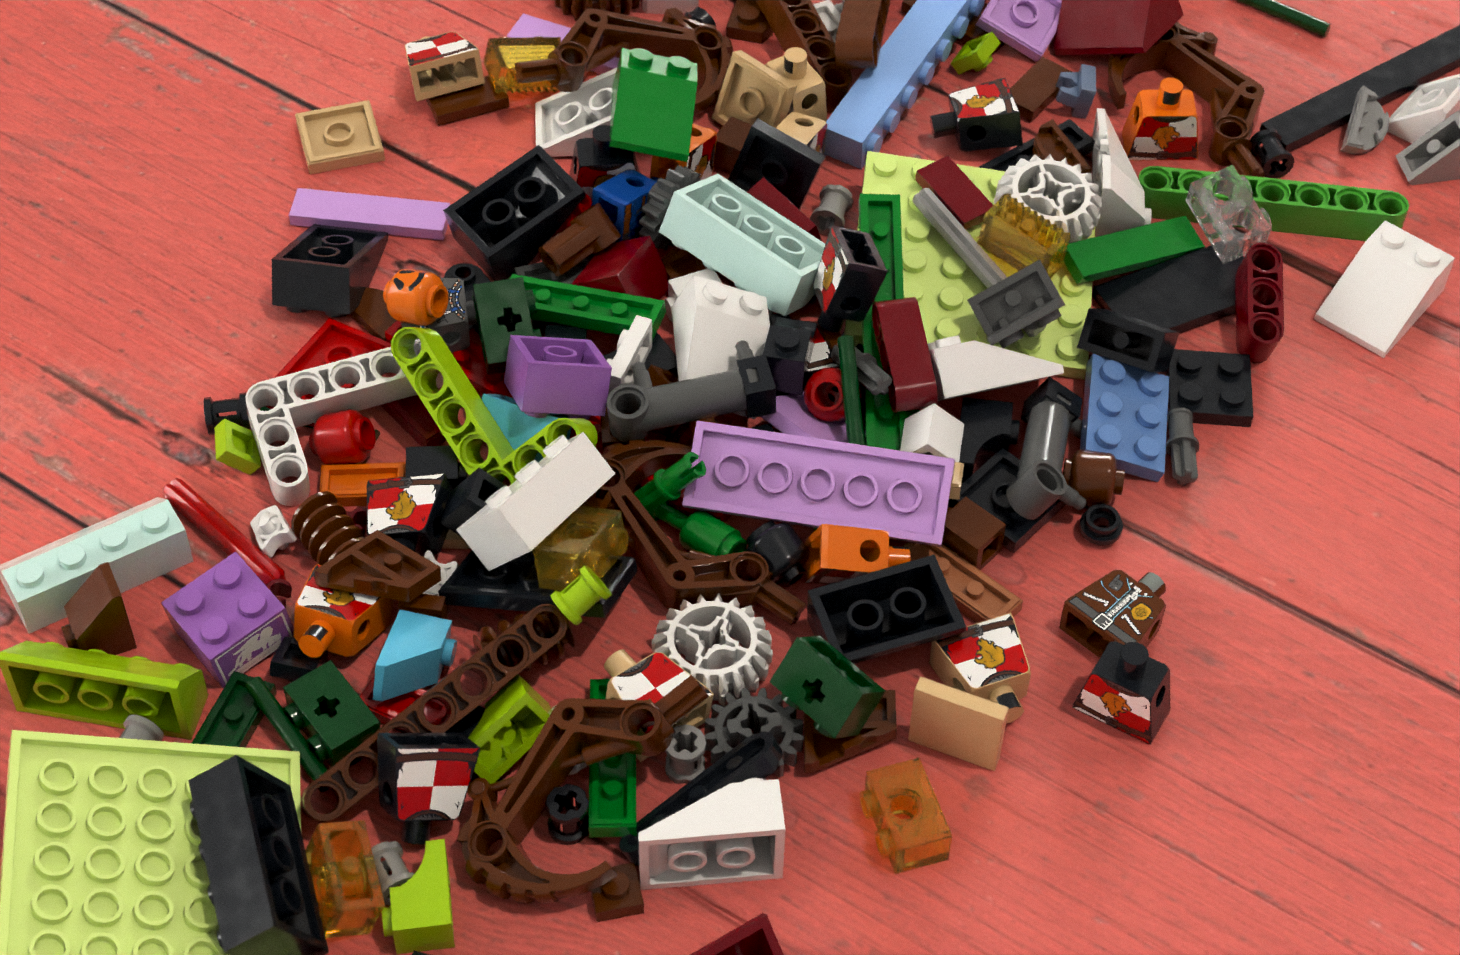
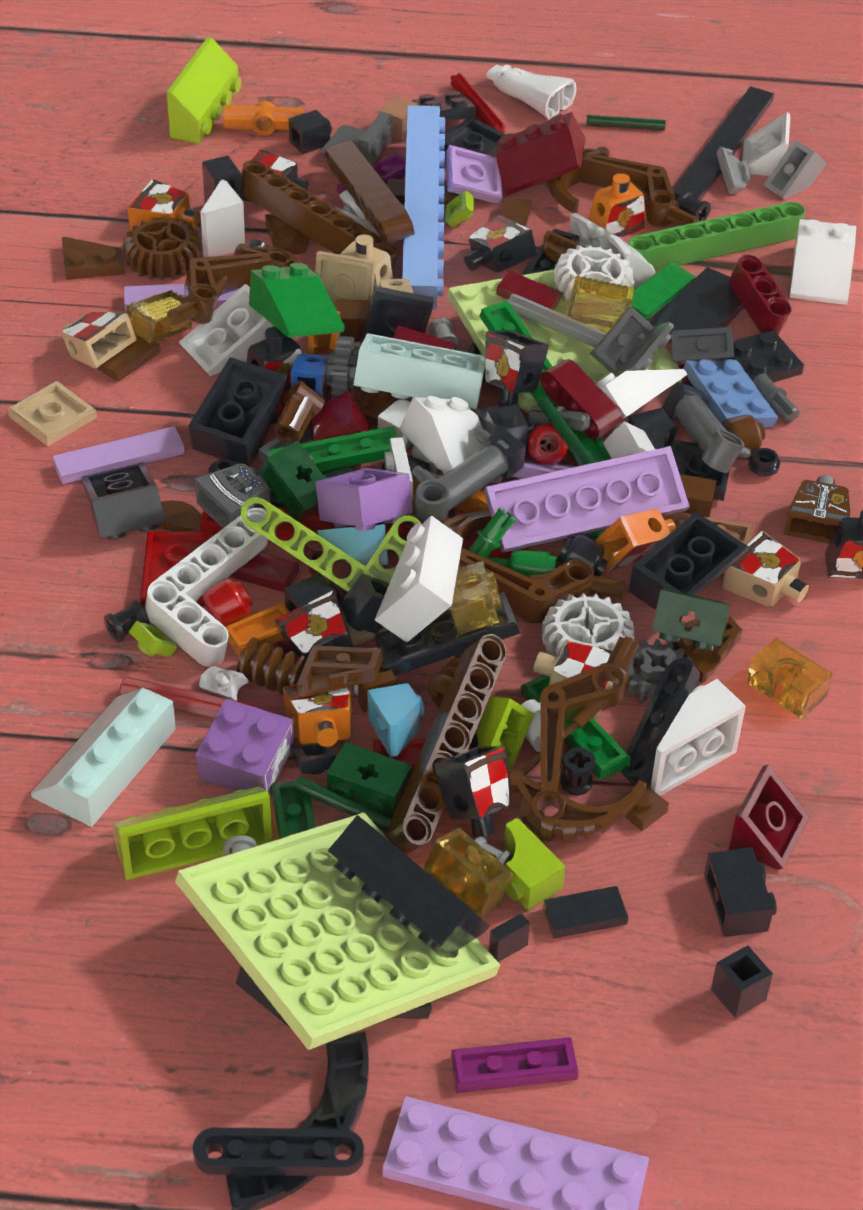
camera: 30 degrees left, 5 degrees down
(98, 616) = (151, 781): reddish brown slope -> none
(415, 297) = (228, 482): orange head -> none
(580, 595) = (504, 619): lime bush -> none
(685, 754) = (625, 711): light grey bush -> none
(957, 723) = (783, 608): tan tile -> none
(1077, 90) = (545, 209): sand blue tile -> none
(1220, 216) = (705, 247): clear brick -> none

